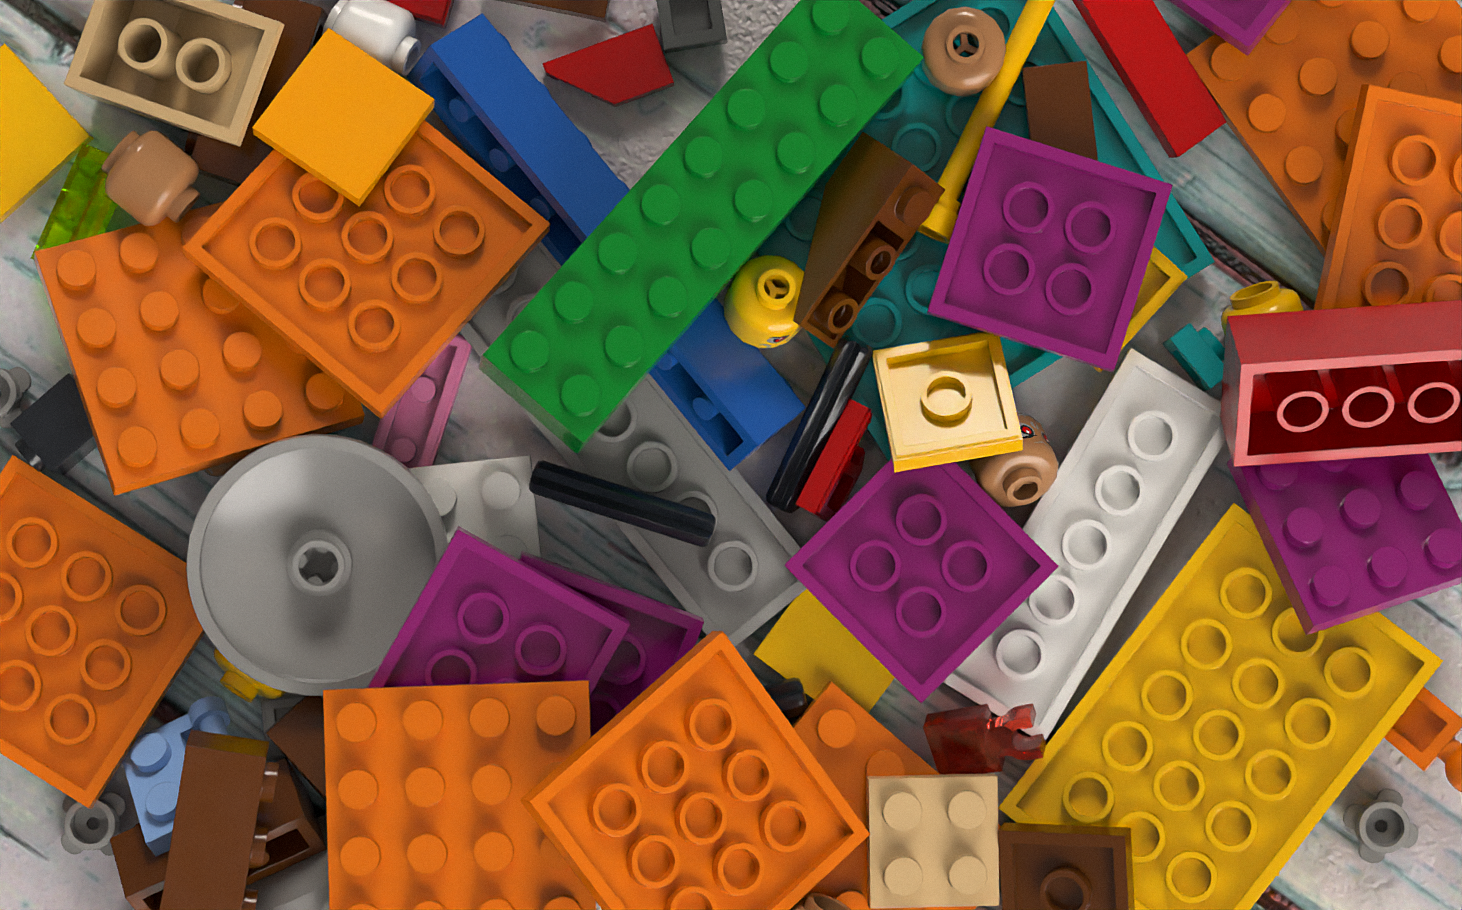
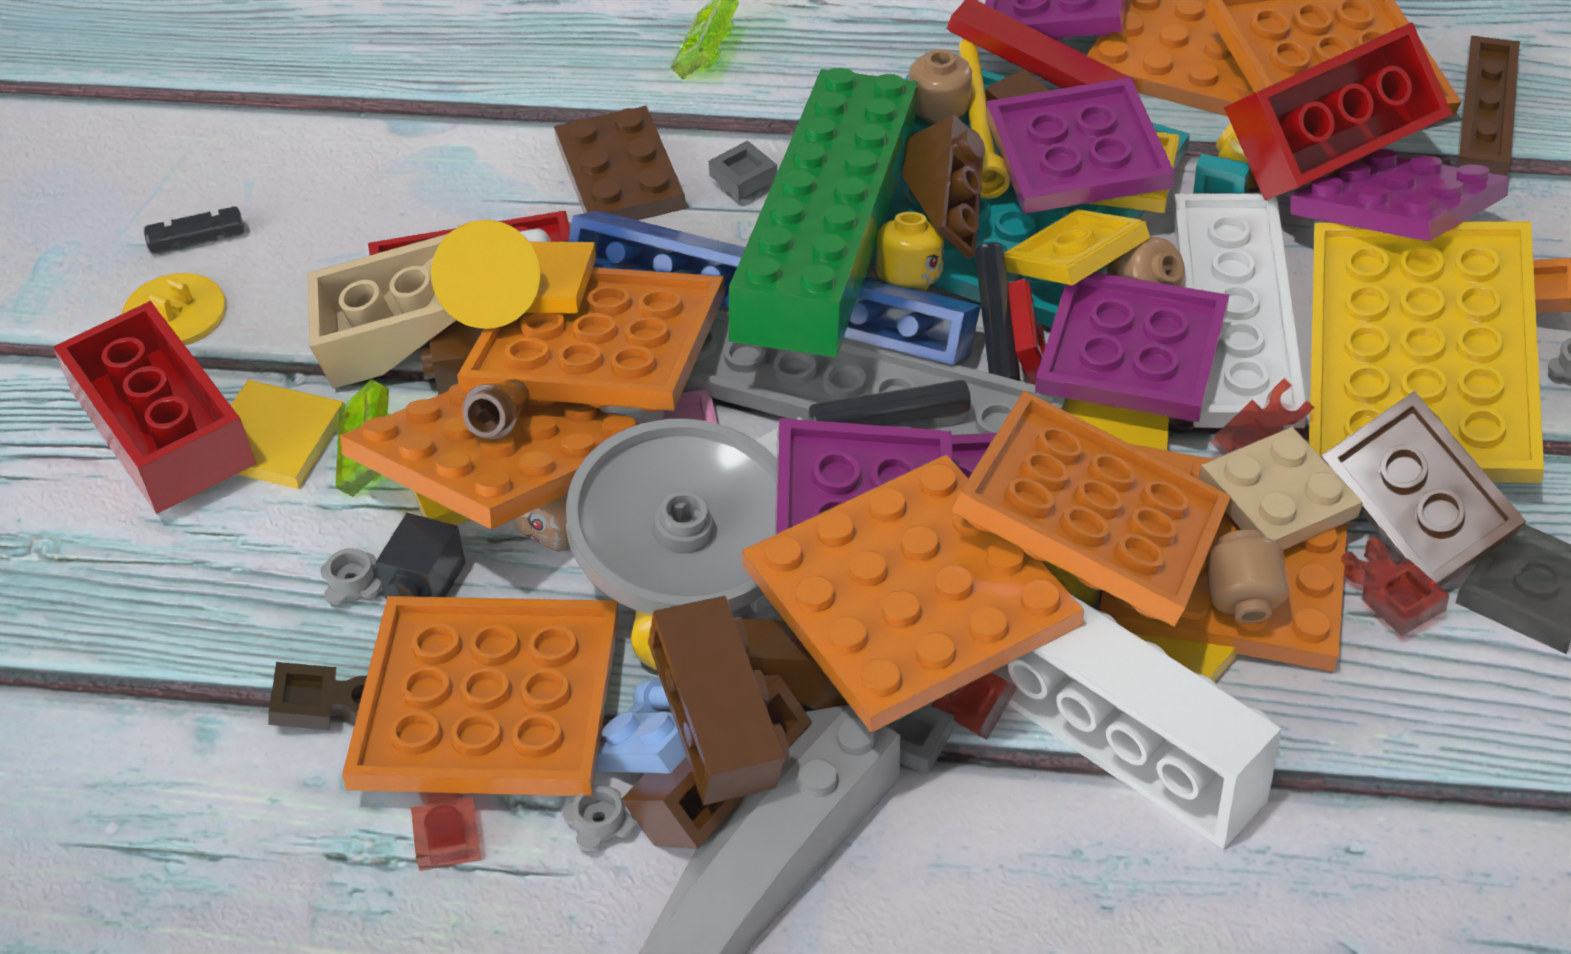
camera: 30 degrees left, 40 degrees down
(151, 178) = (407, 367): medium nougat head -> none
(193, 332) = (494, 408): none -> reddish brown cone
(268, 132) = (485, 274): none -> yellow piece
(616, 68) = (716, 215): red tile -> none

